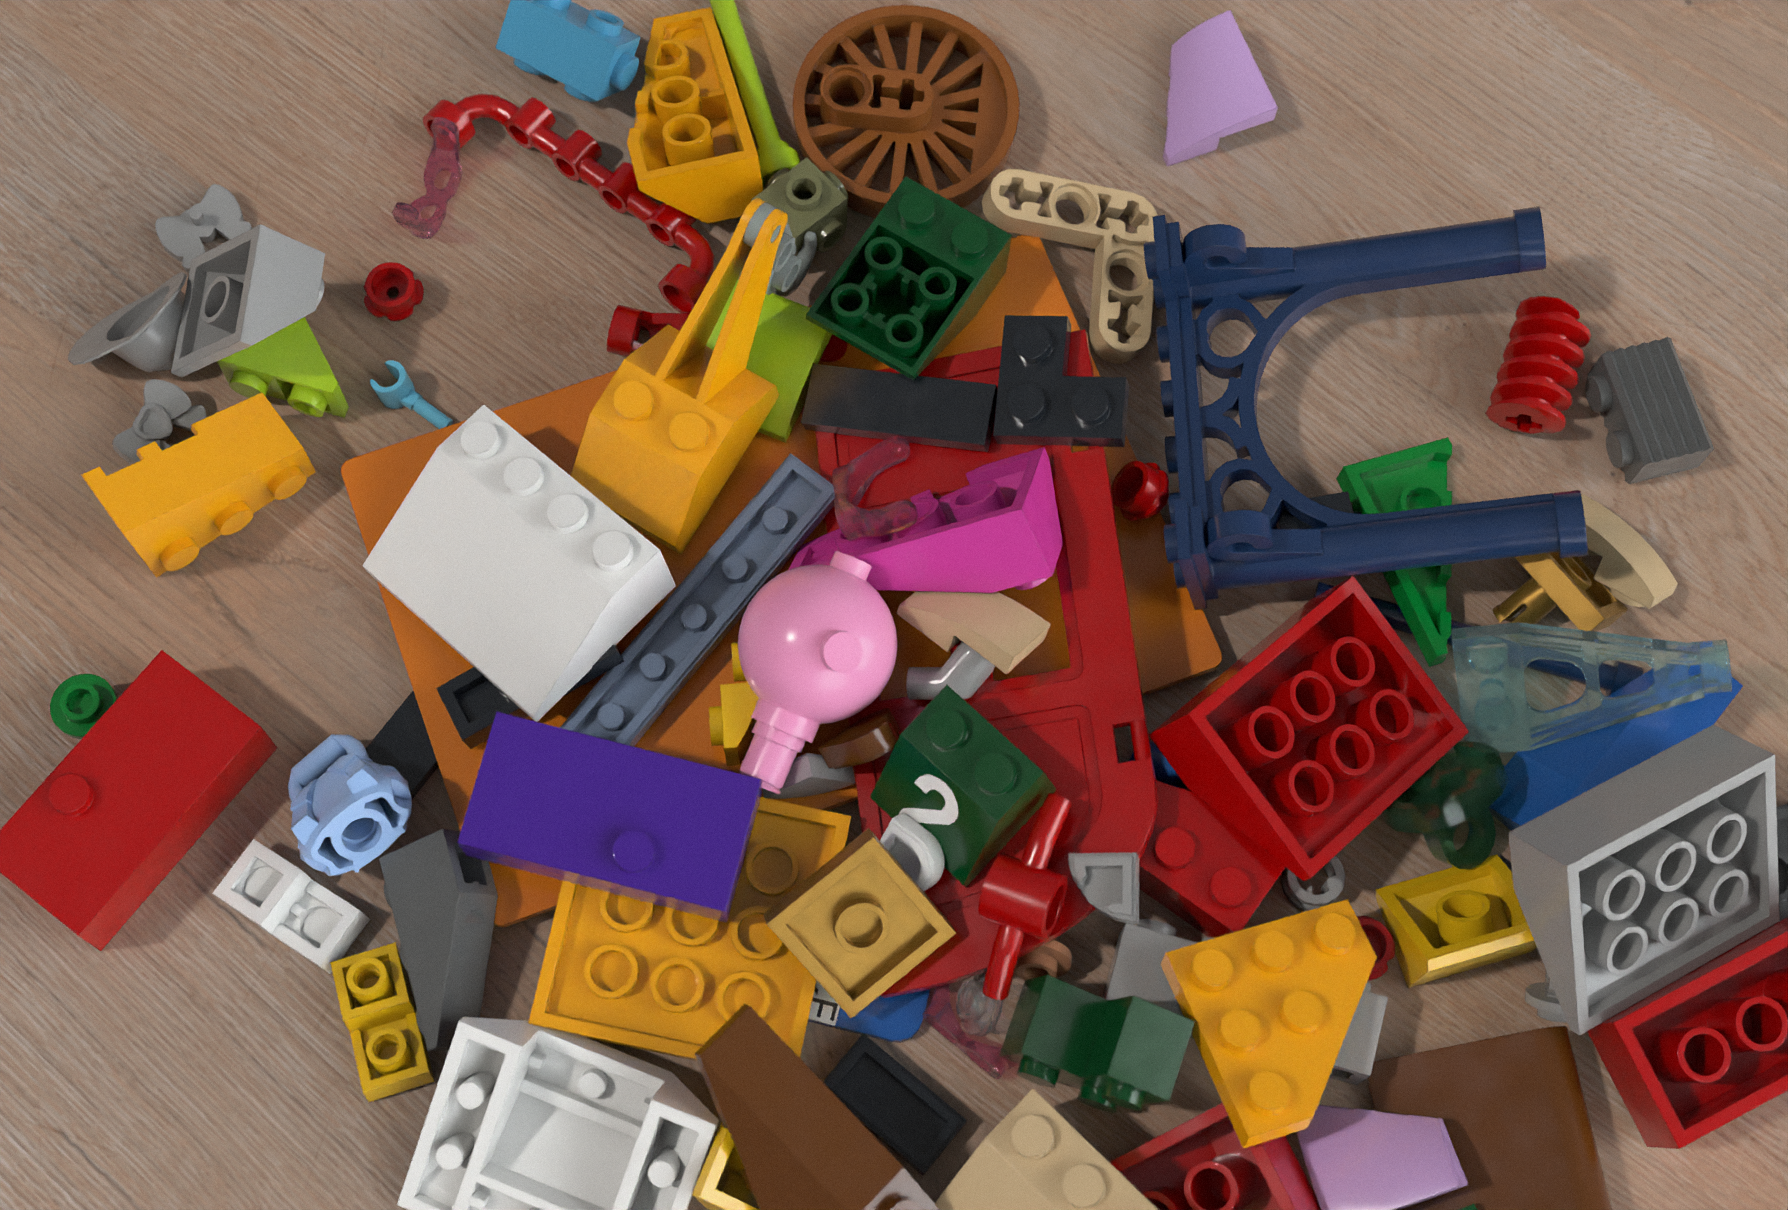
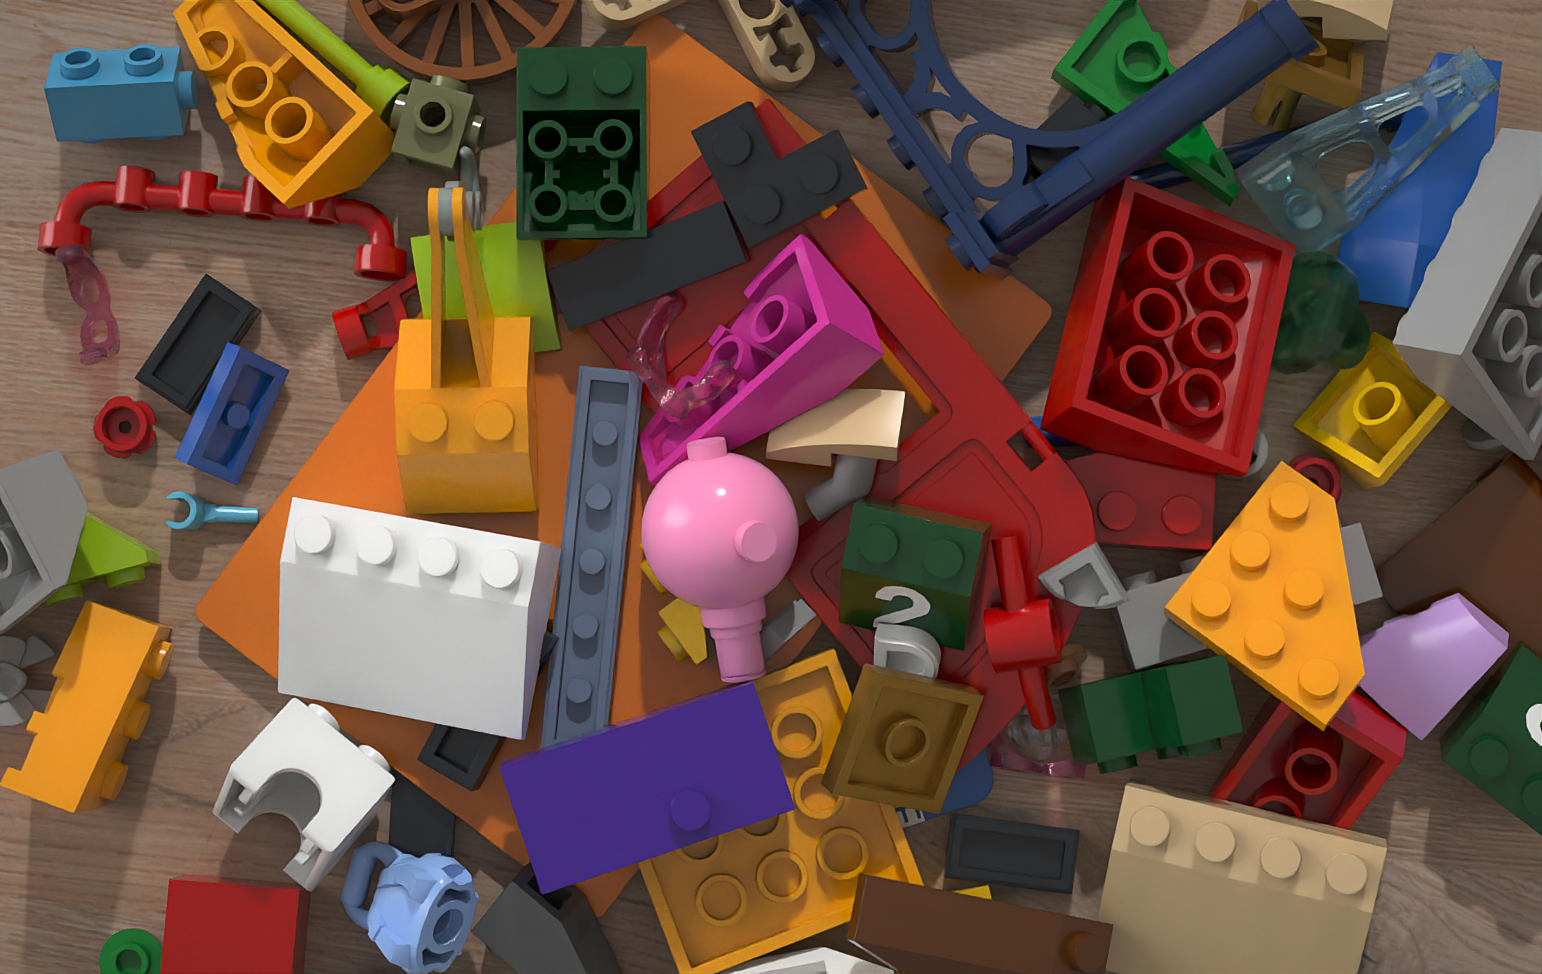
camera: 30 degrees left, 15 degrees up
(336, 637) = (314, 779): none -> white piece
(484, 330) = (232, 413): none -> blue plate
(496, 267) = (195, 341): none -> black tile
(862, 741) = (808, 583): reddish brown tile -> none
(1140, 490) = (895, 205): red plate -> none

